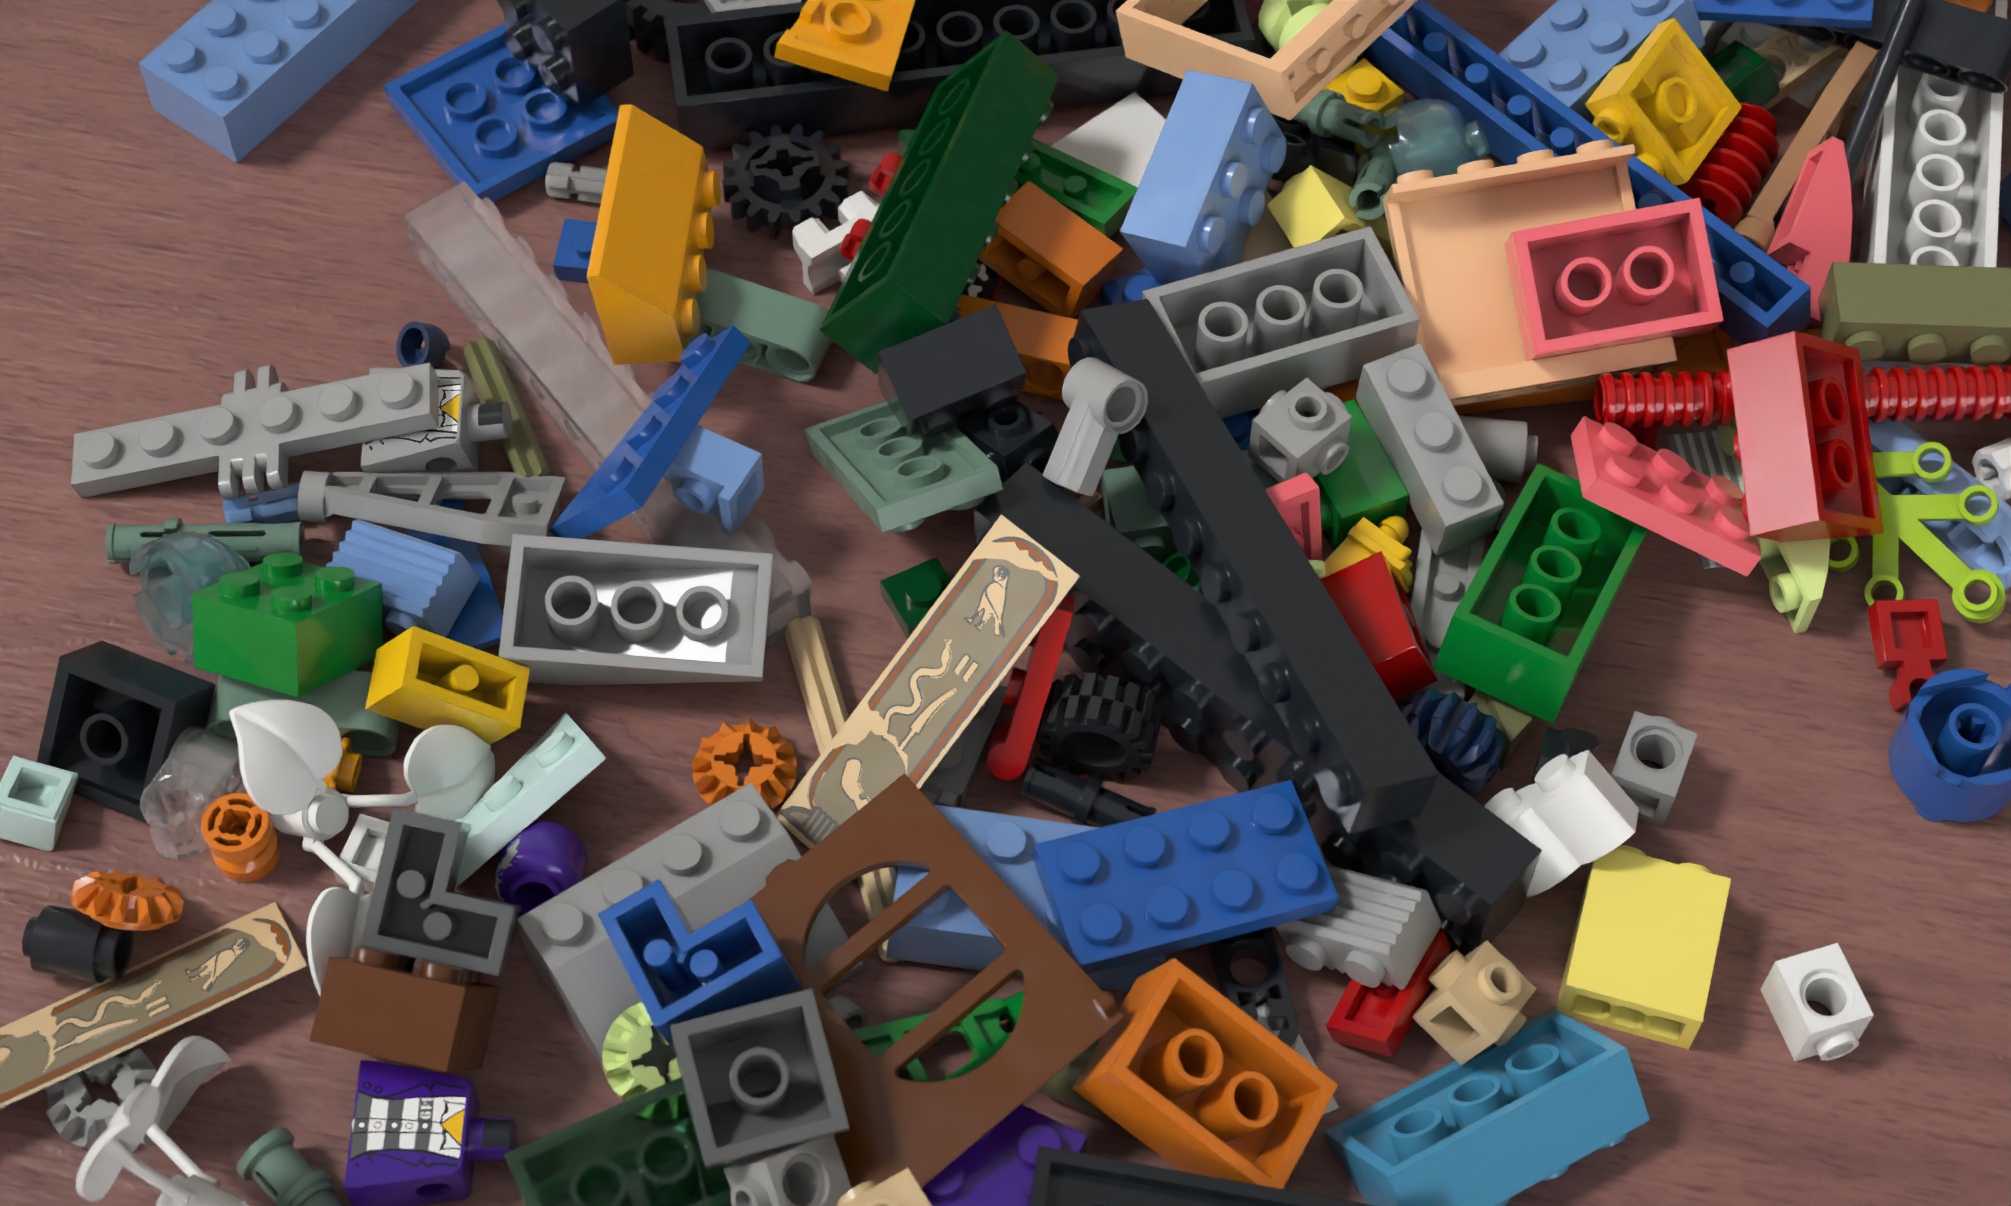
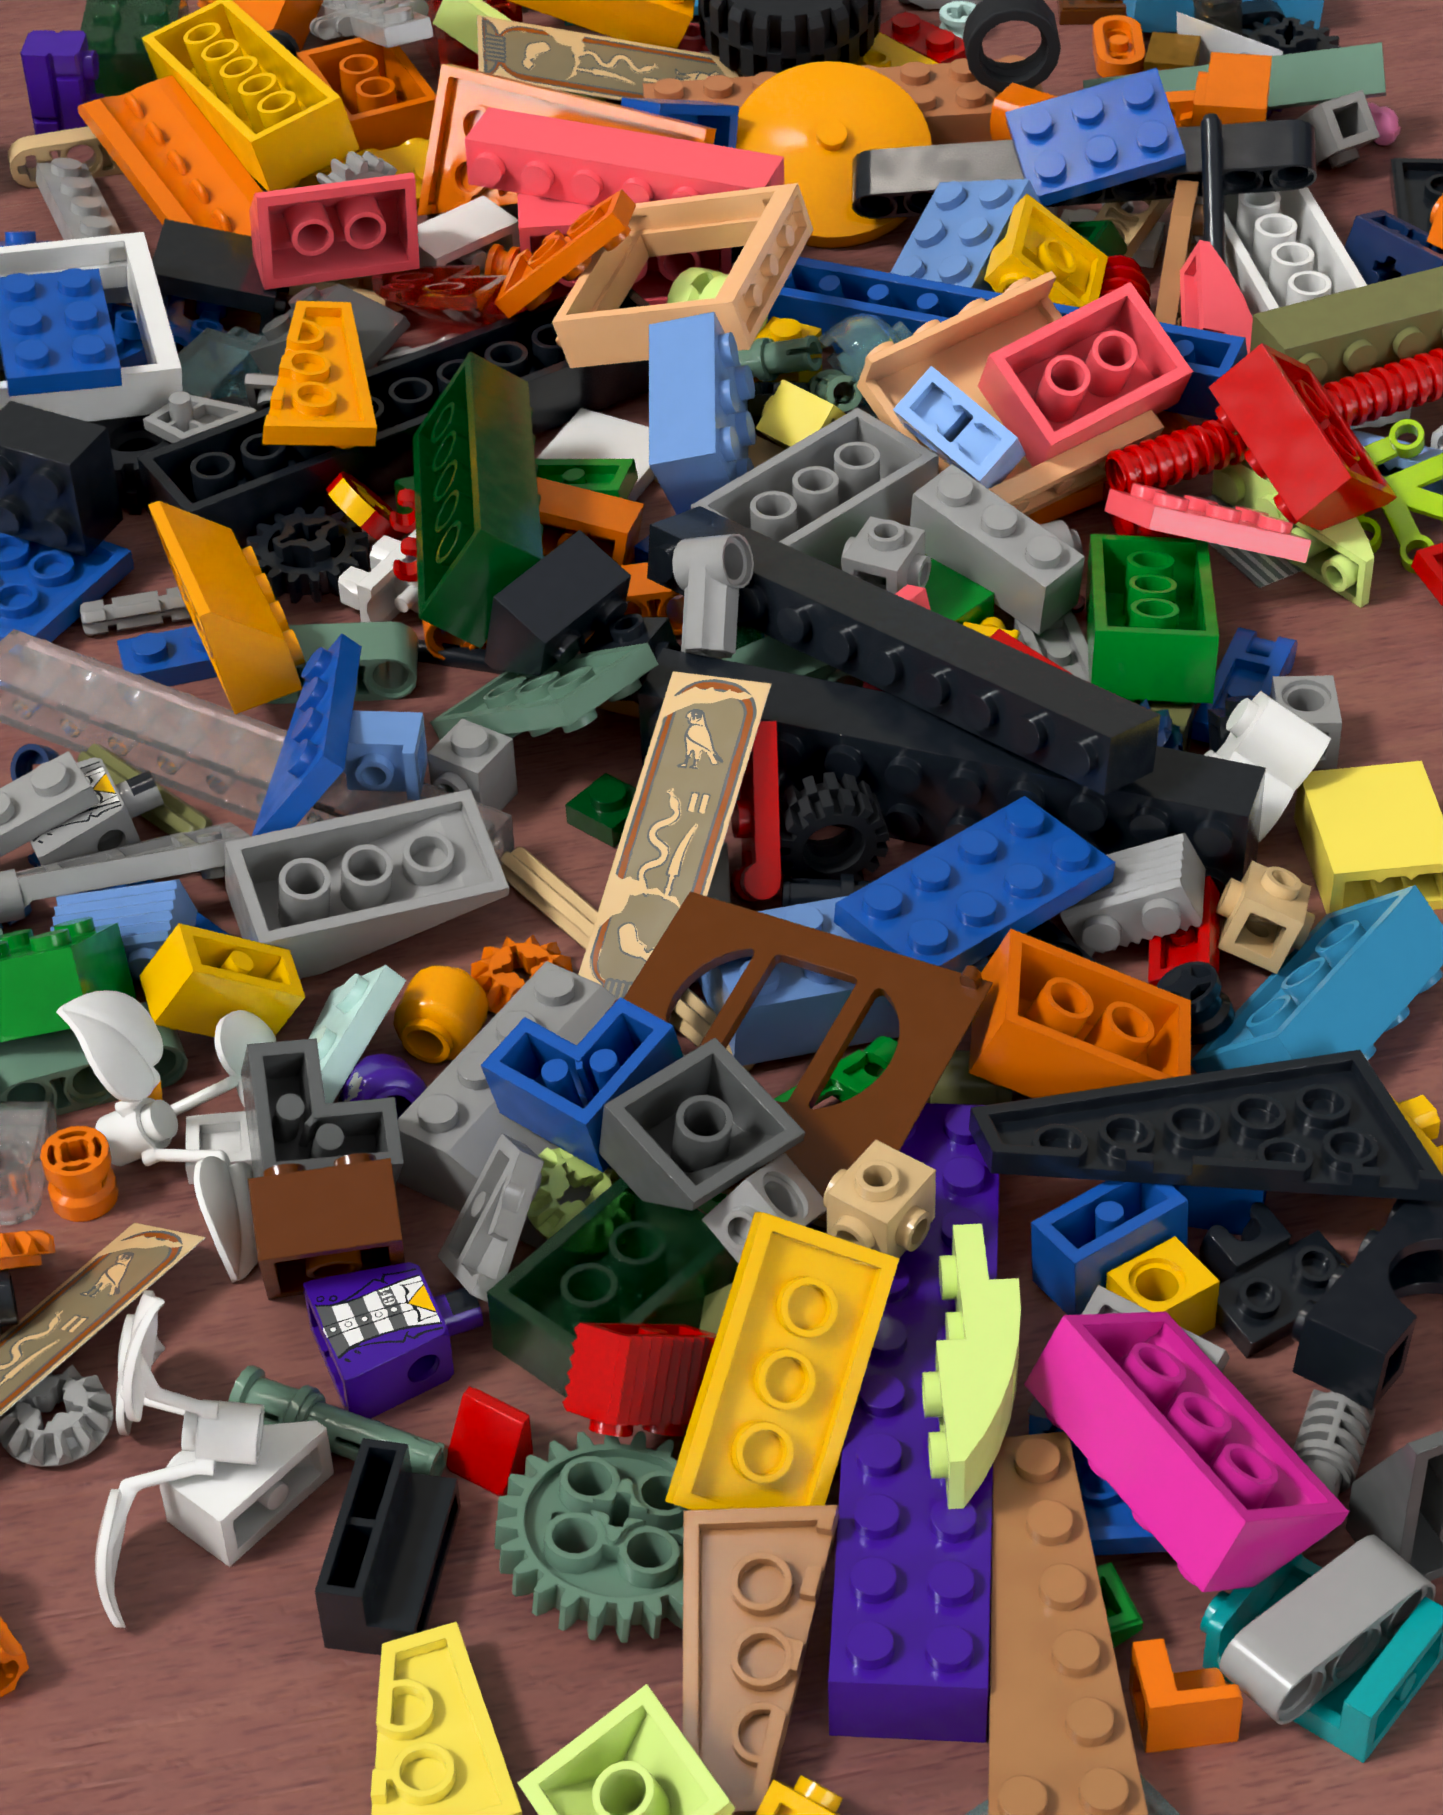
camera: 20 degrees left, 15 degrees down
(556, 1065) = (493, 1217): none -> light grey wing
(645, 785) = (440, 1013): none -> light orange head
(807, 512) = (477, 761): none -> light grey brick
(856, 146) = (363, 506): none -> piece
(1360, 1069) = (1210, 1007): none -> black wheel
(1449, 302) = (959, 429): none -> light blue brick
(1619, 687) = (1245, 672): none -> blue plate

